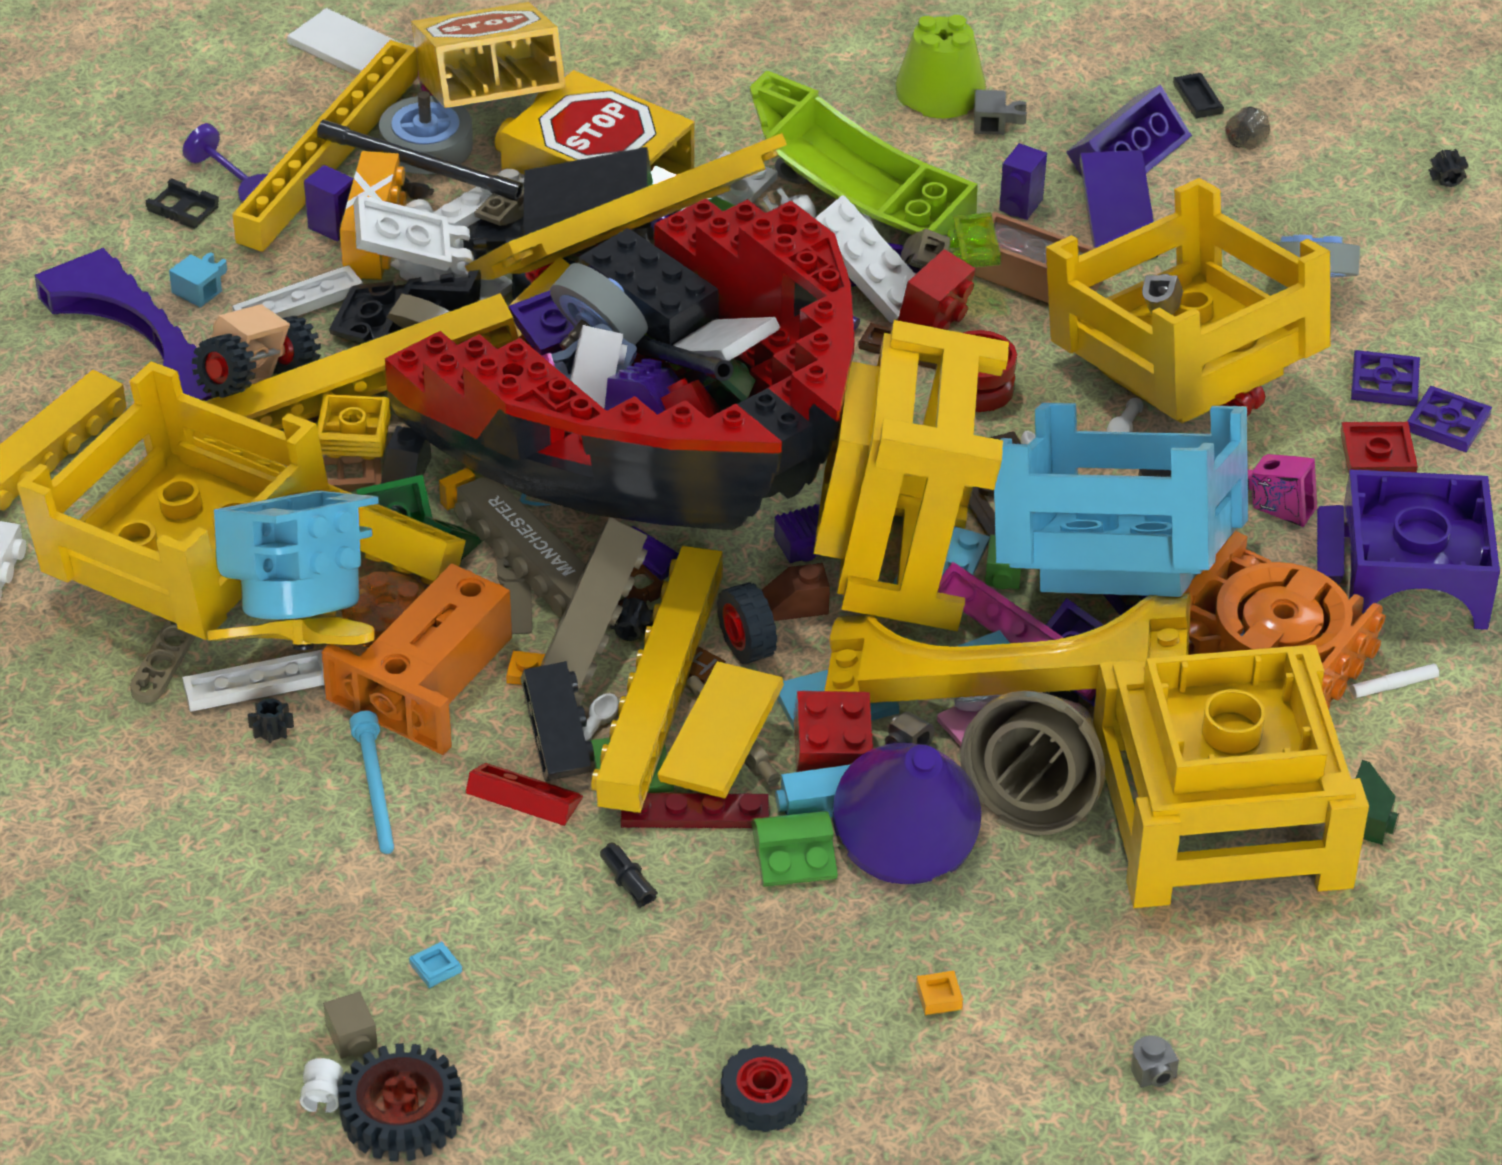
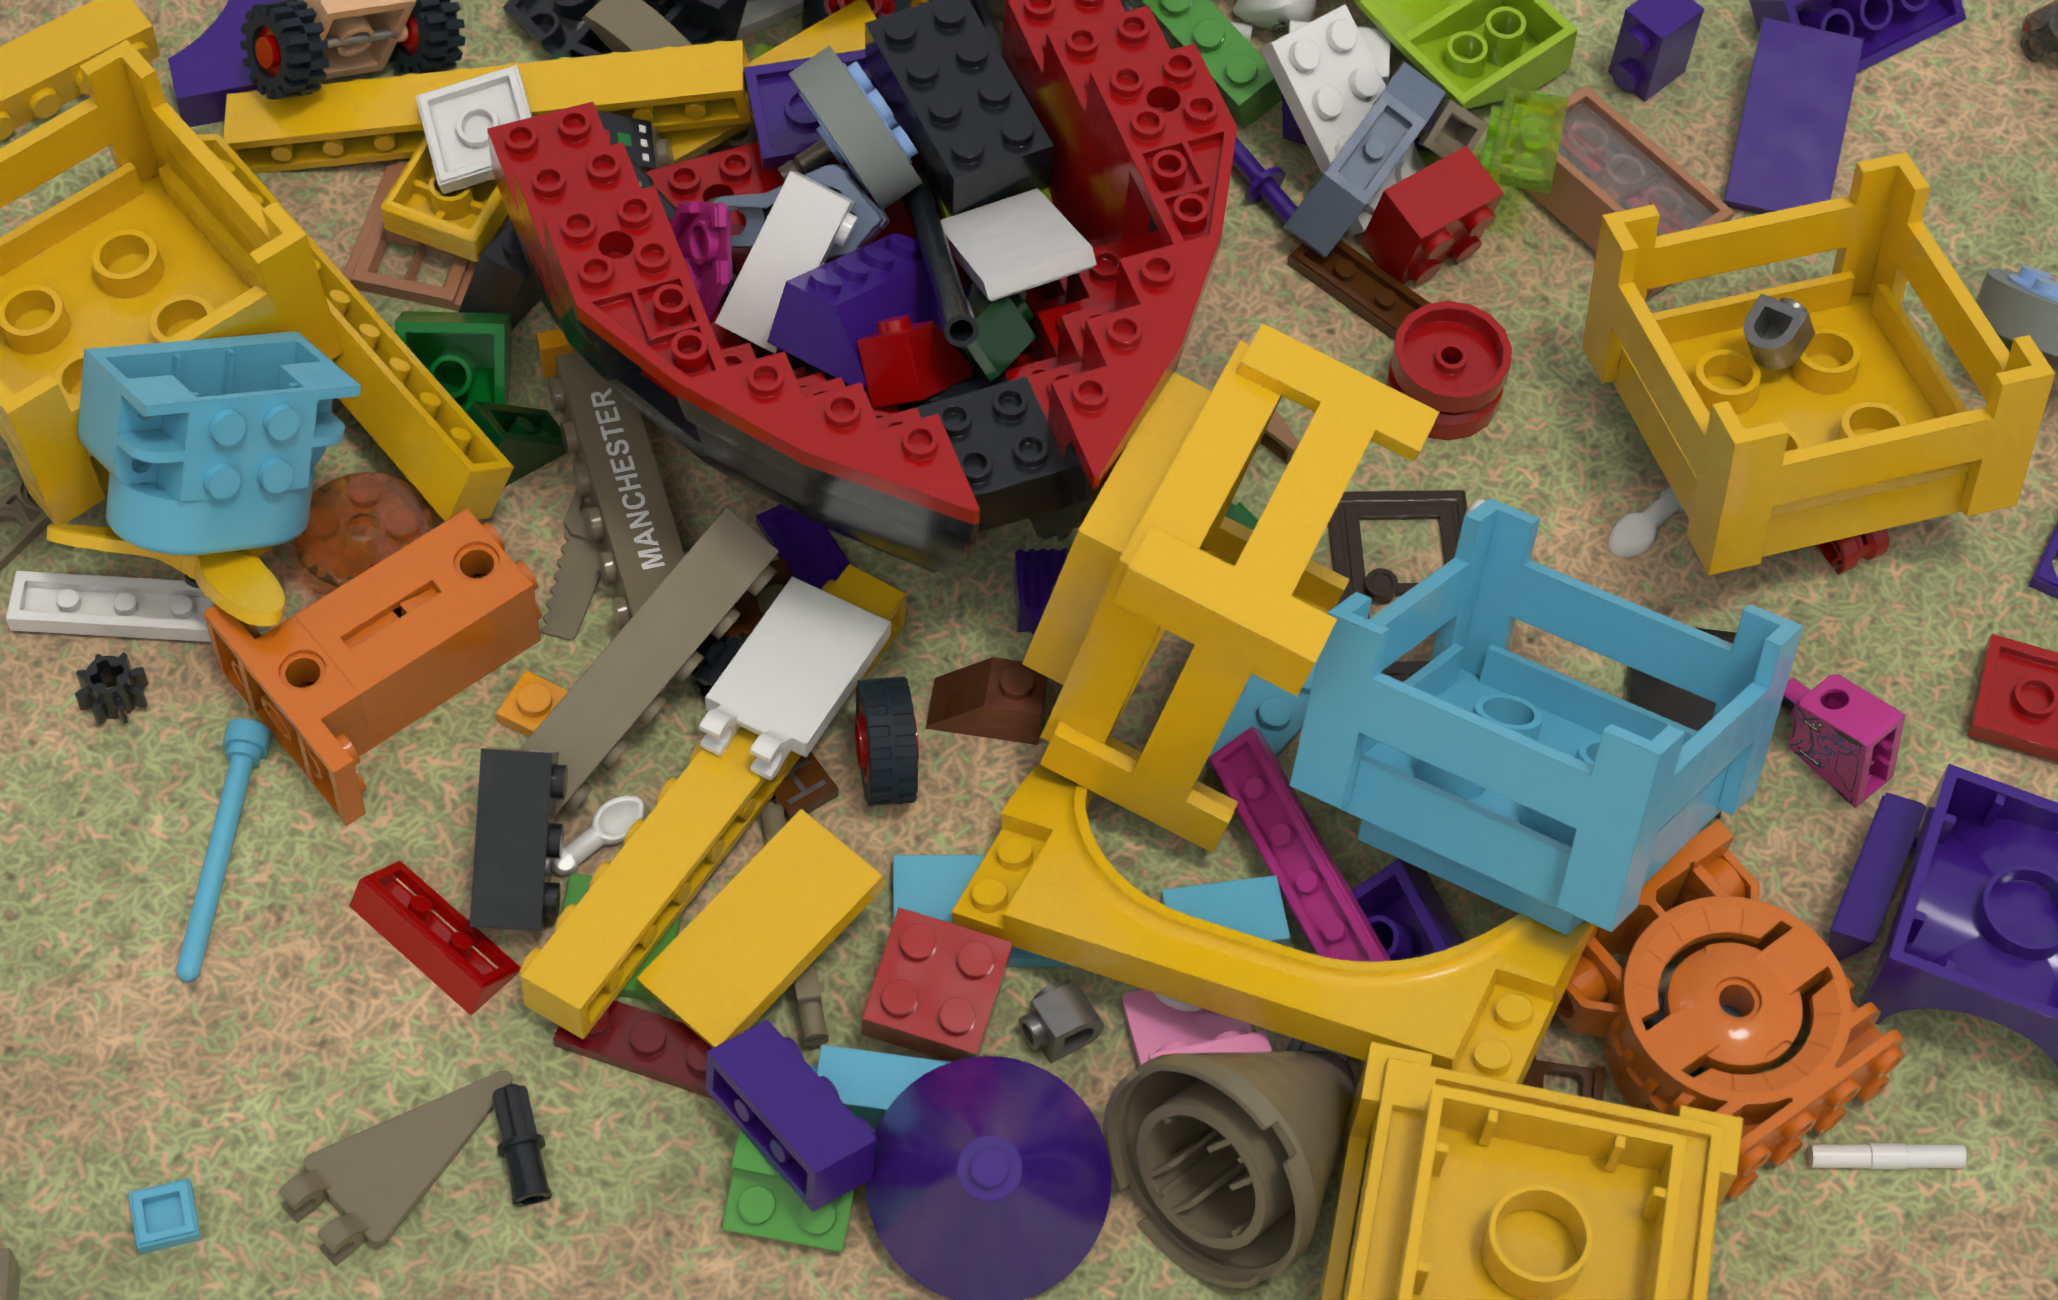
camera: 15 degrees right, 15 degrees up
(356, 380) = (458, 121): none -> white tile
(554, 907) = (387, 1168): none -> dark tan flag
(679, 601) = (792, 675): none -> white tile
(784, 803) = (791, 1114): none -> dark purple brick
(886, 277) = (1365, 160): none -> sand blue slope

